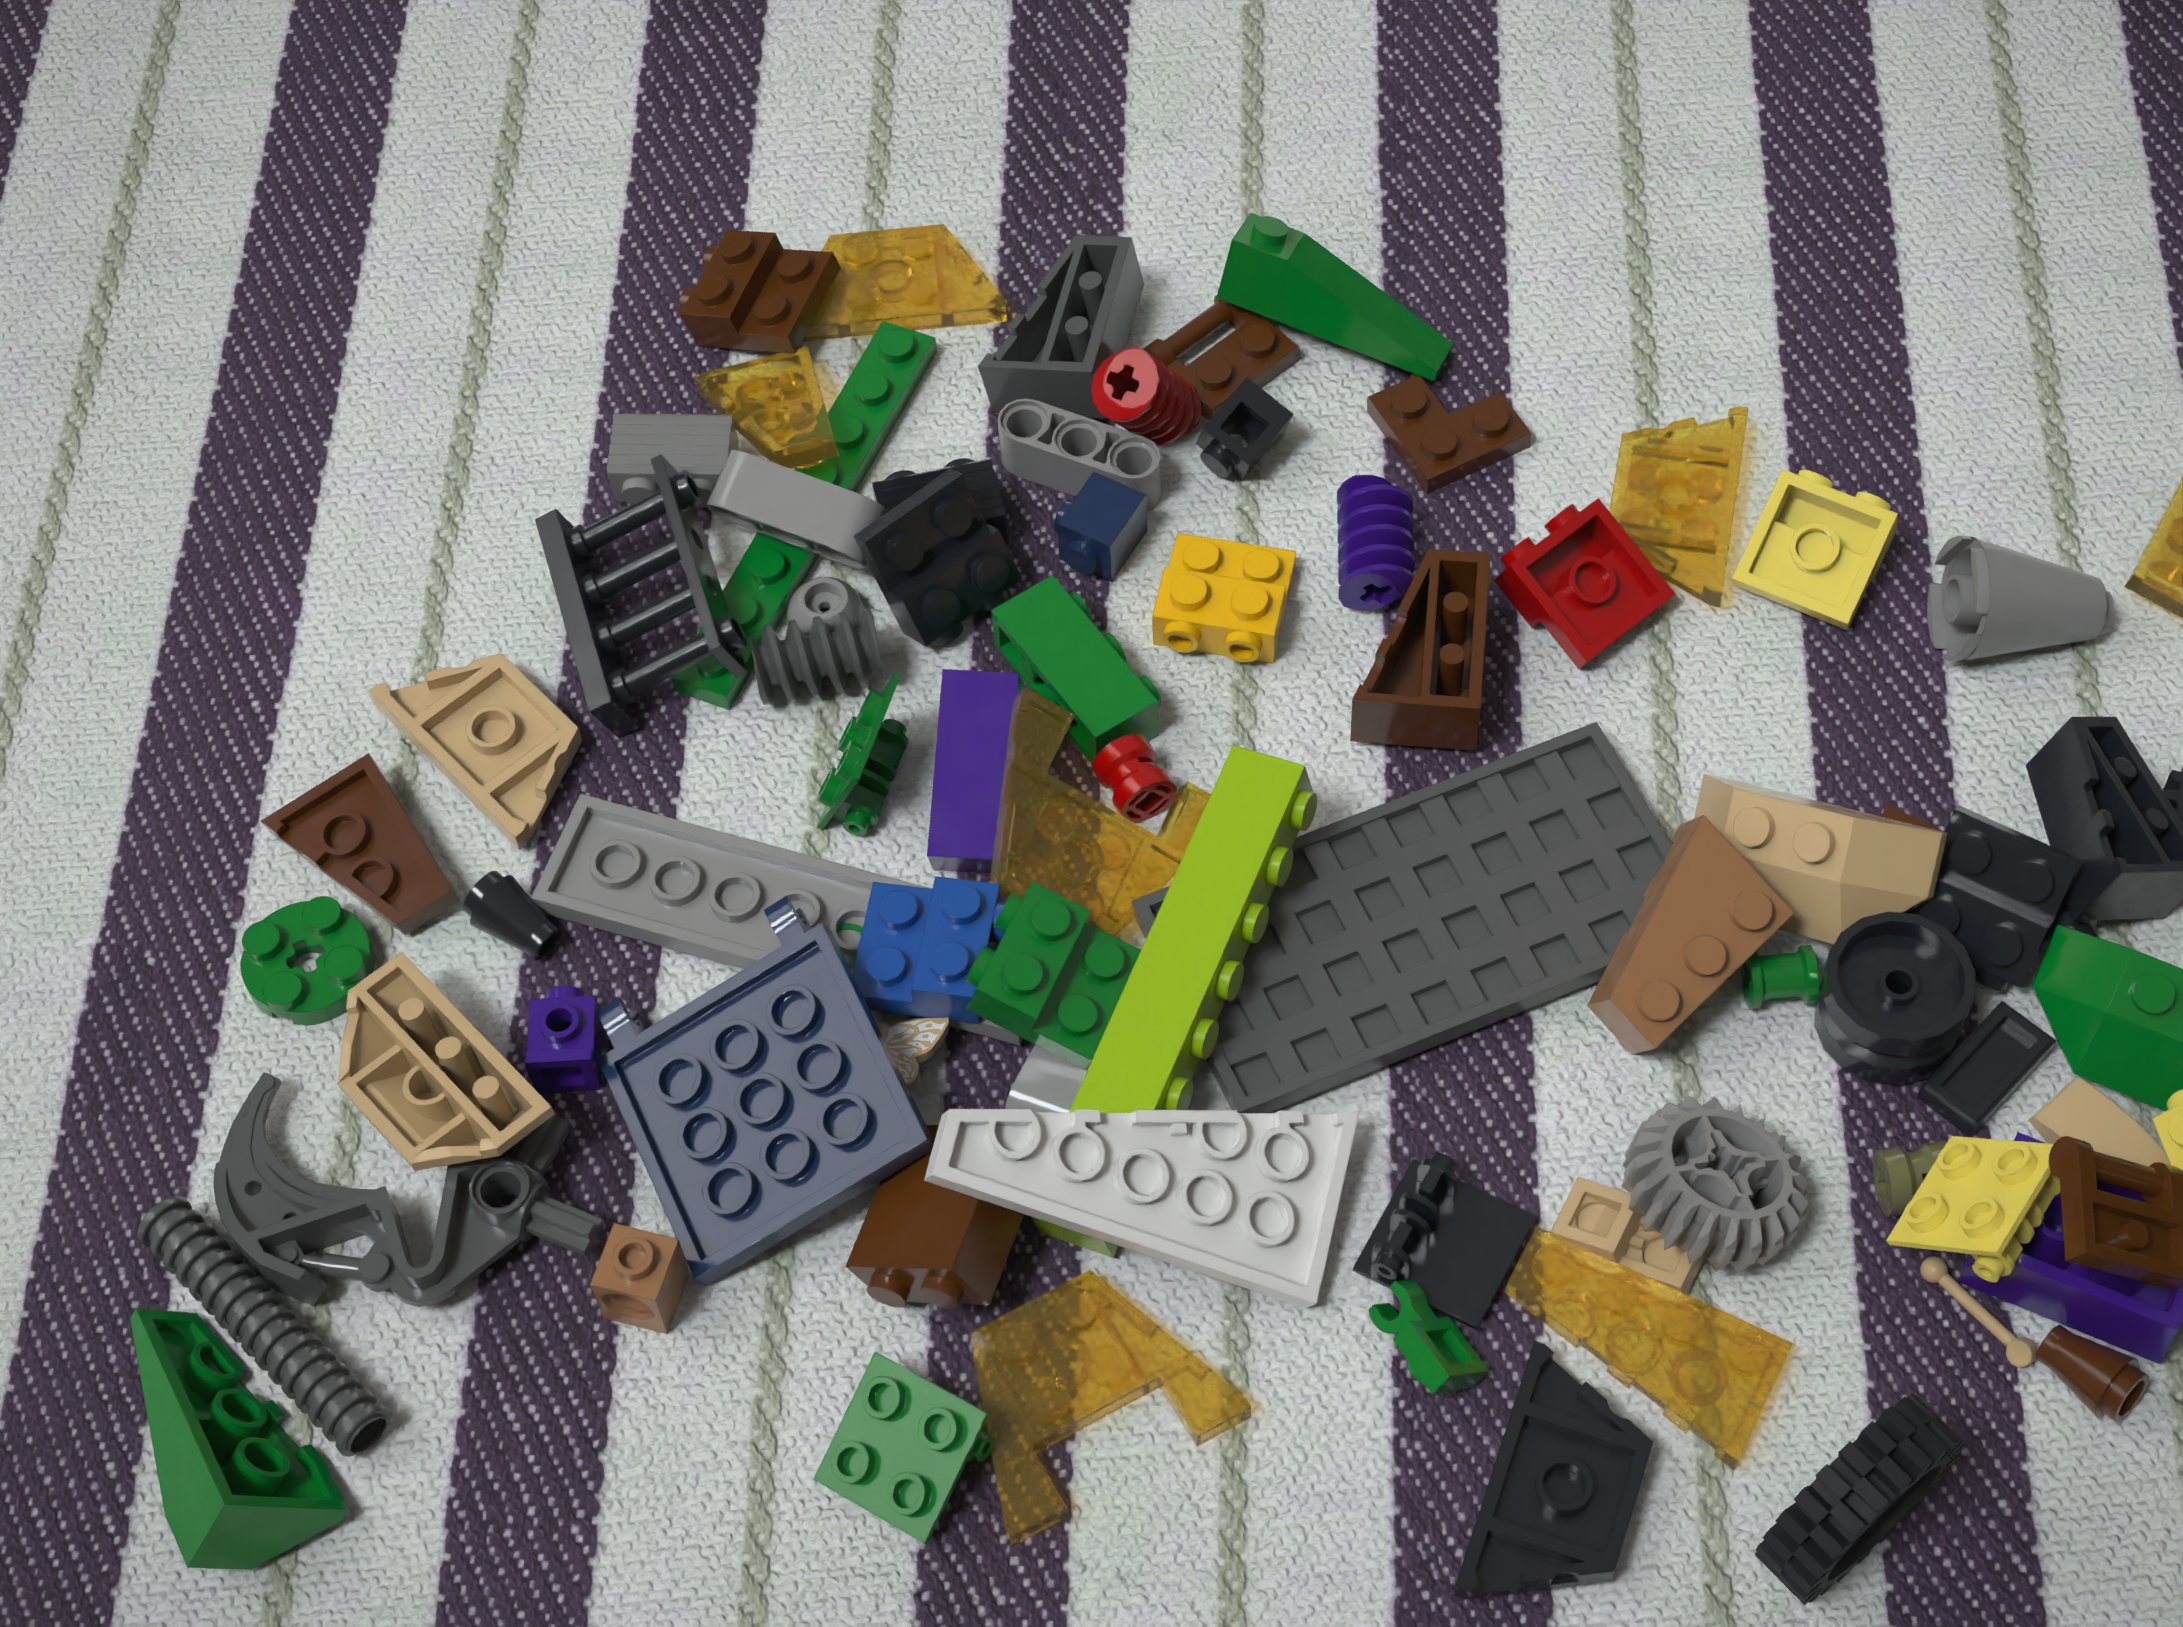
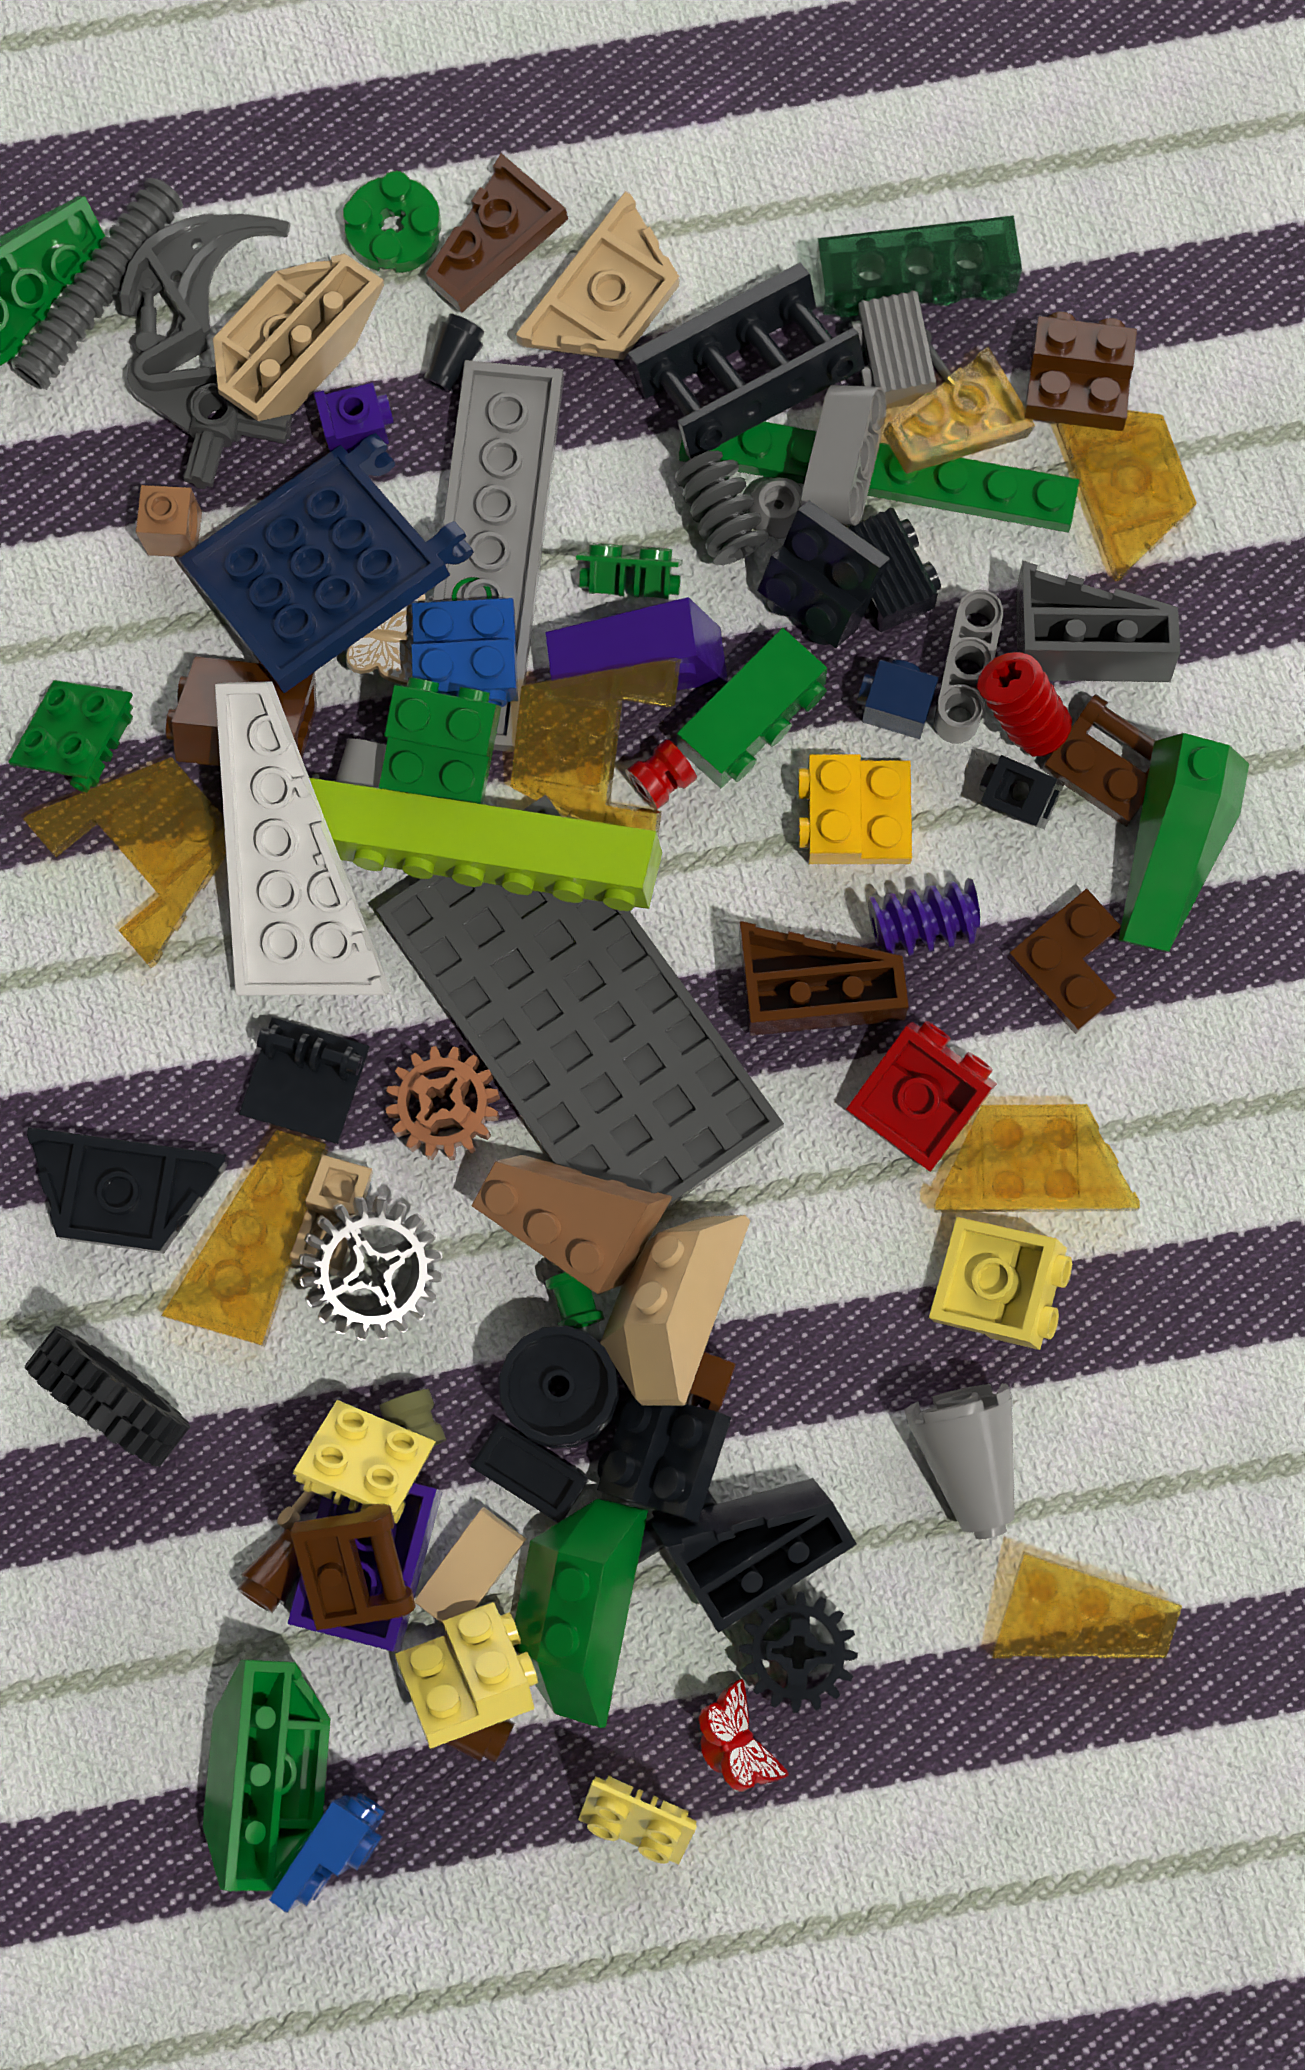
camera: 80 degrees right, 20 degrees up
(573, 417) = (937, 247): none -> clear green brick
(1432, 1345) = (211, 1085): green plate -> none
(1507, 1080) = (425, 1090): none -> nougat gear

